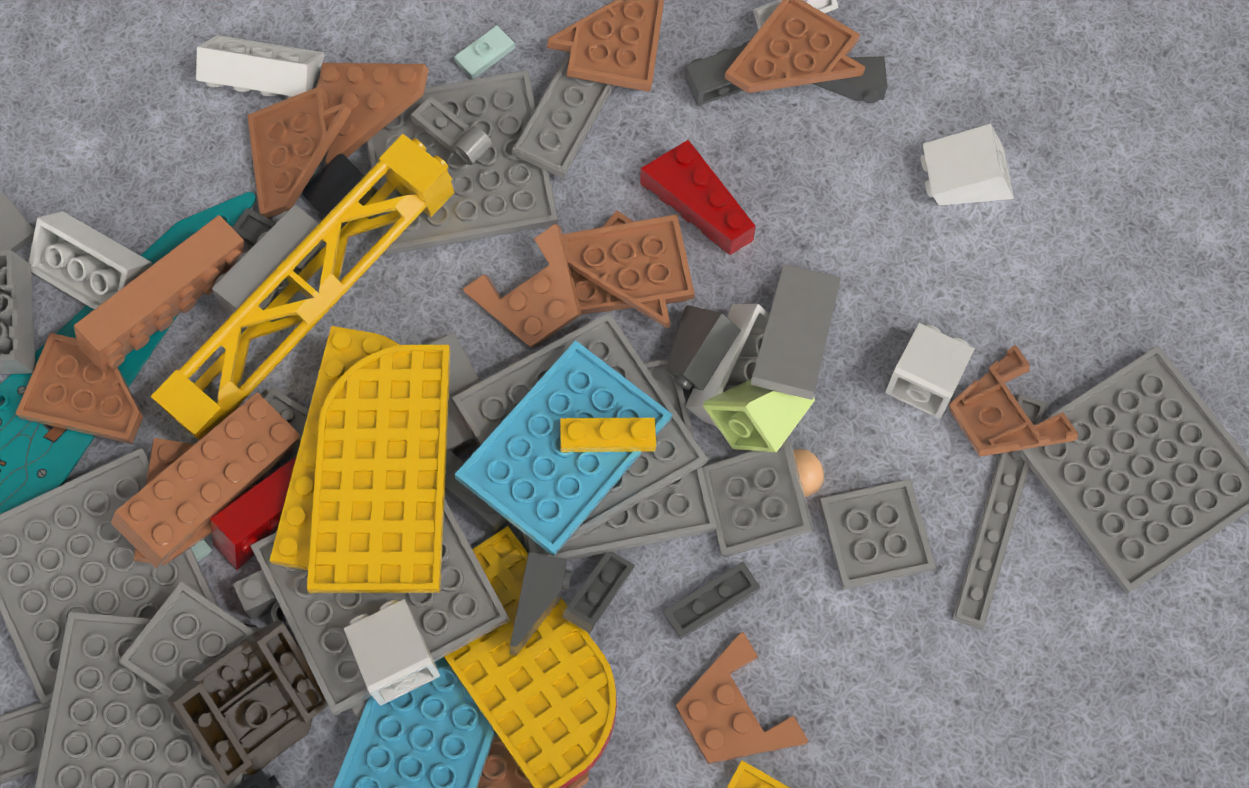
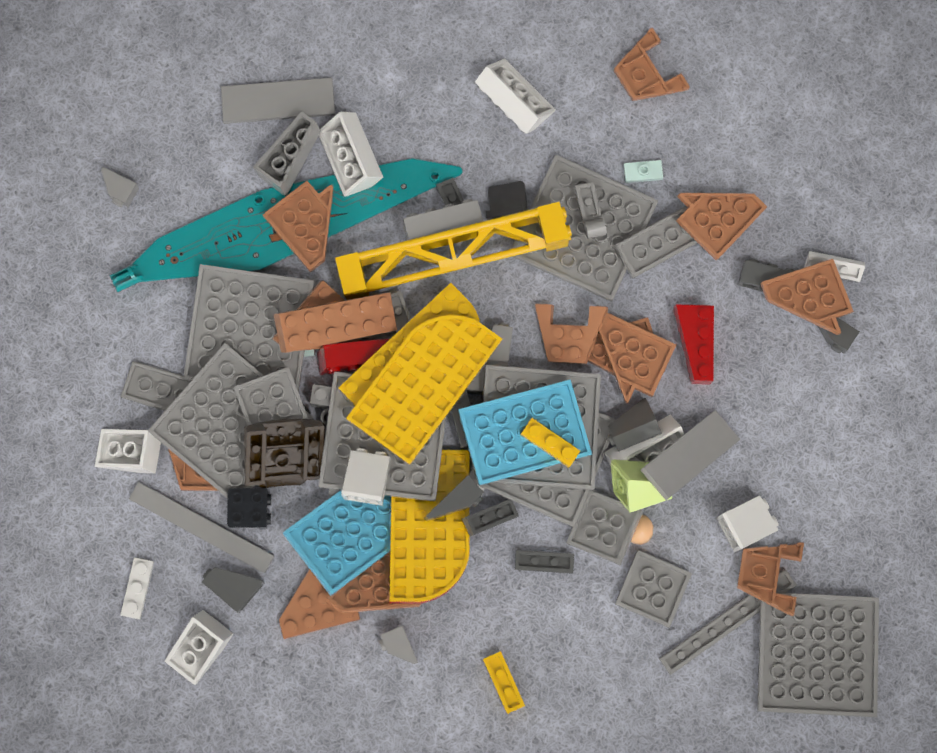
camera: 30 degrees right, 10 degrees up
(158, 295) = (375, 202): nougat brick -> none
(289, 145) = (499, 157): nougat wing -> none
(376, 97) = (553, 157): nougat wing -> none
(721, 717) = (506, 623): nougat wing -> none
(967, 168) = (856, 427): white slope -> none

